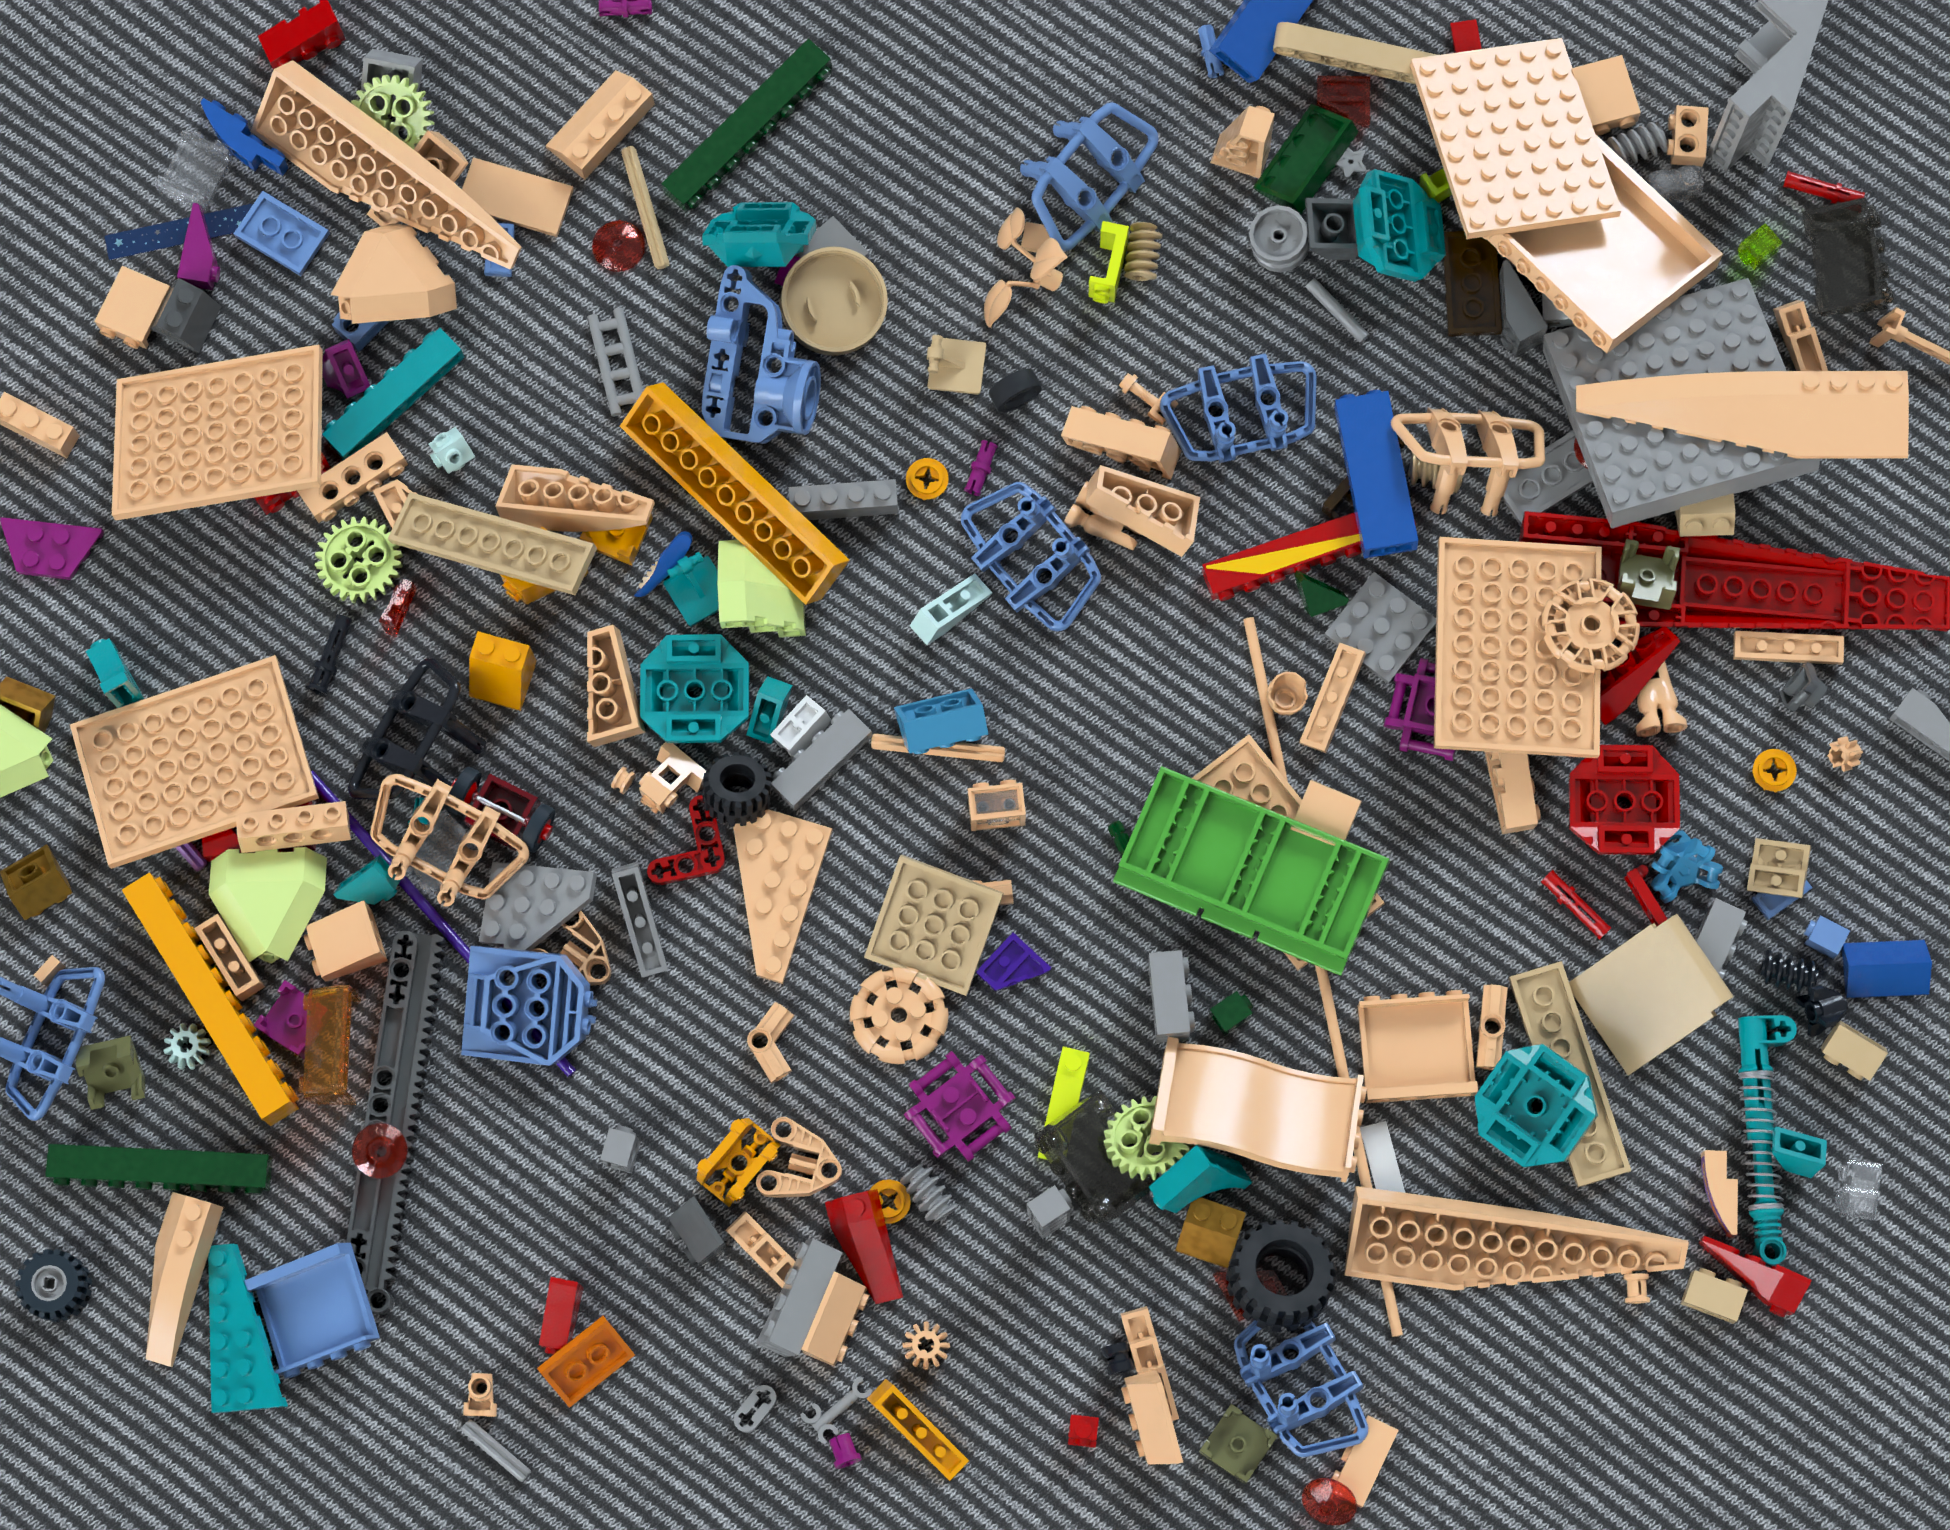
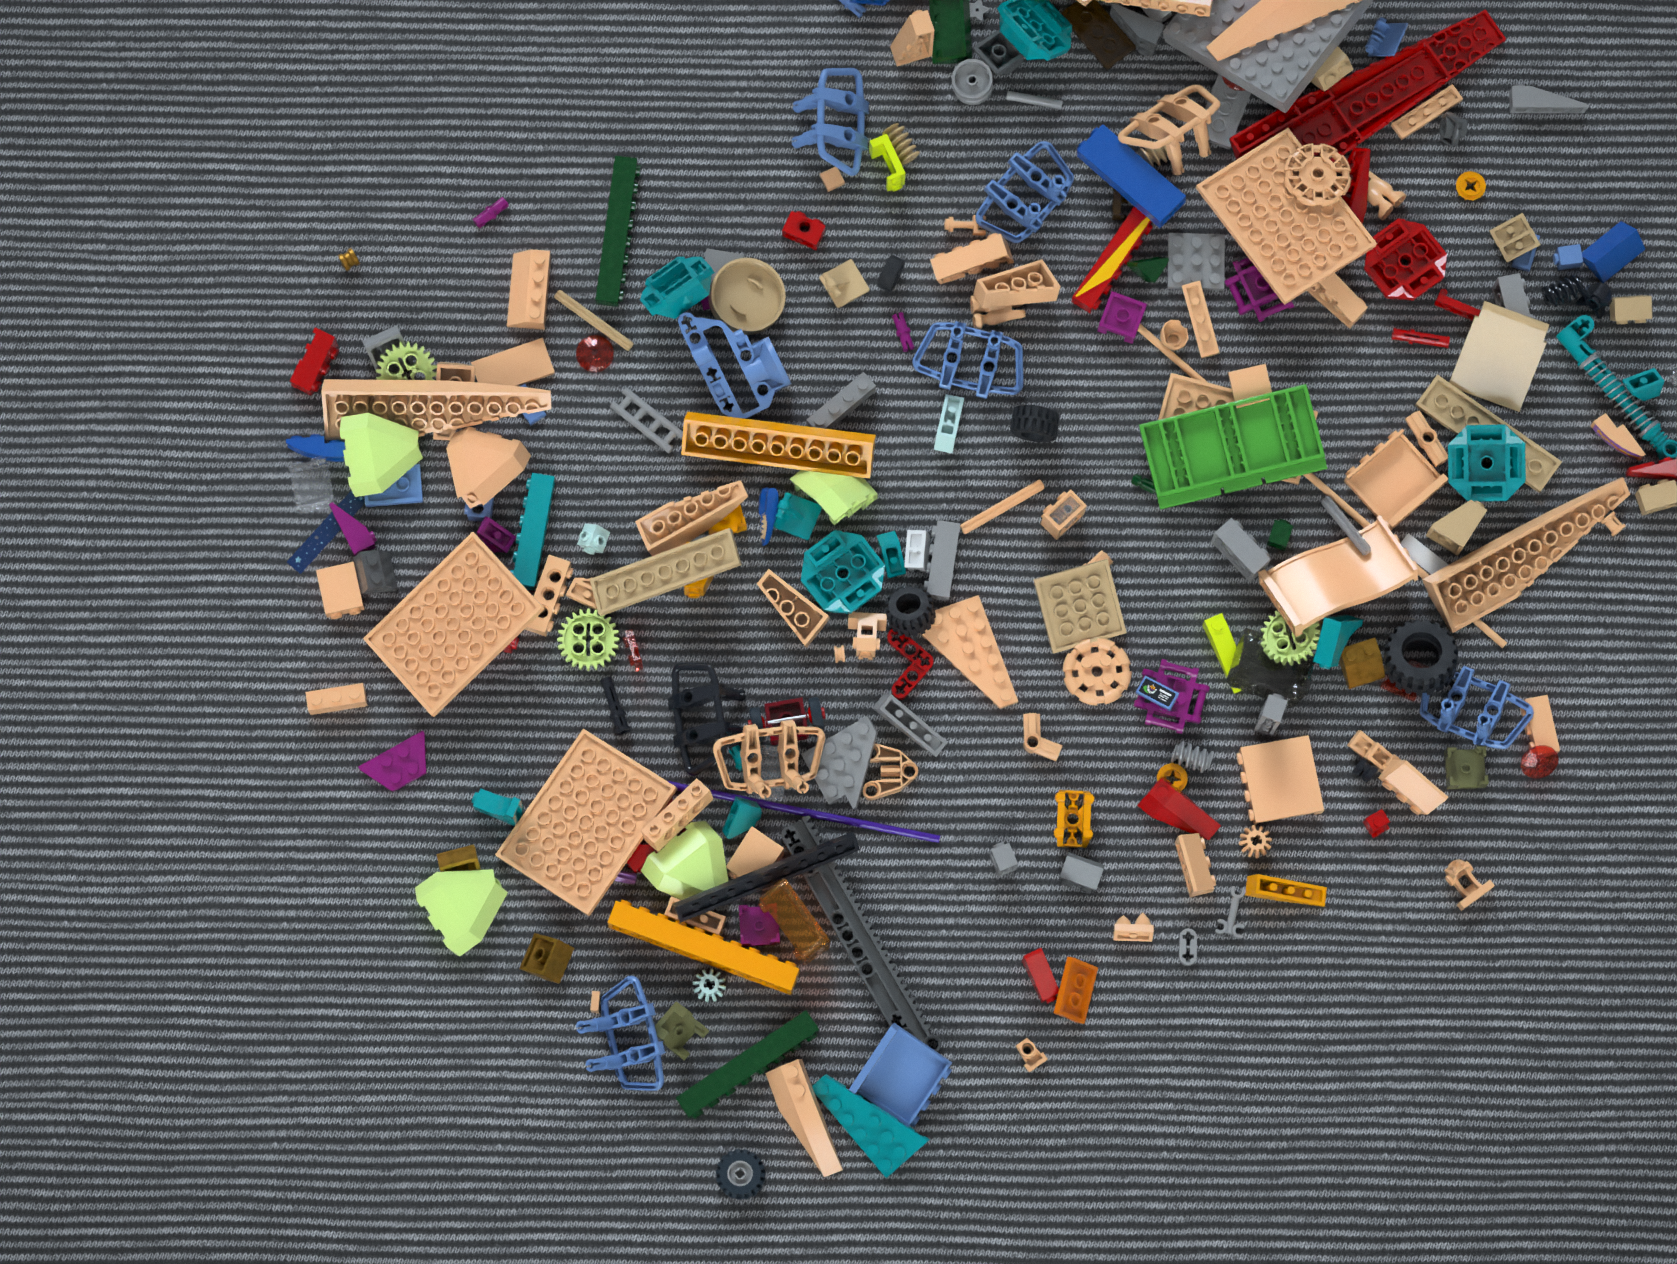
camera: 45 degrees left, 0 degrees up
(287, 182) = (377, 452): none -> yellowish green panel
(336, 970) = (766, 876): none -> black plate
(370, 1140) = (872, 949): clear red dish -> none
(496, 1450) = (1062, 1078): light grey axle -> none
(500, 670) = (723, 642): light orange slope -> none
(563, 997) = (915, 813): medium blue hinge -> none
(714, 1350) = (1140, 931): none -> light nougat tile
(761, 1247) = (1135, 858): light nougat slope -> none
(796, 1186) = (1102, 778): light nougat connector -> none
(799, 1298) = (1168, 867): light grey wedge -> none
(844, 1451) = (1255, 933): magenta bush -> none
(919, 470) = (879, 351): light orange gear -> none
(941, 721) = (994, 489): dark azure slope -> none
(942, 1090) = (1157, 693): none -> tile
(958, 287) = (810, 238): none -> red brick
(1010, 1296) = (1280, 779): none -> light nougat panel
(1011, 964) = (1137, 597): dark purple wing -> none
(1043, 272) = (856, 194): light nougat plant -> none
(1044, 678) = (1034, 423): none -> black tyre
(1243, 629) = (1122, 316): none -> magenta panel
(1315, 1058) = (1346, 525): none -> light grey axle
(1446, 1155) = (1457, 527): none -> tan slope
(1648, 579) = (1324, 126): olive panel -> none
(1683, 867) = (1461, 273): dark azure piece -> none
(1805, 528) = (1385, 38): none -> medium blue hinge
(1844, 753) = (1502, 148): light nougat gear -> none

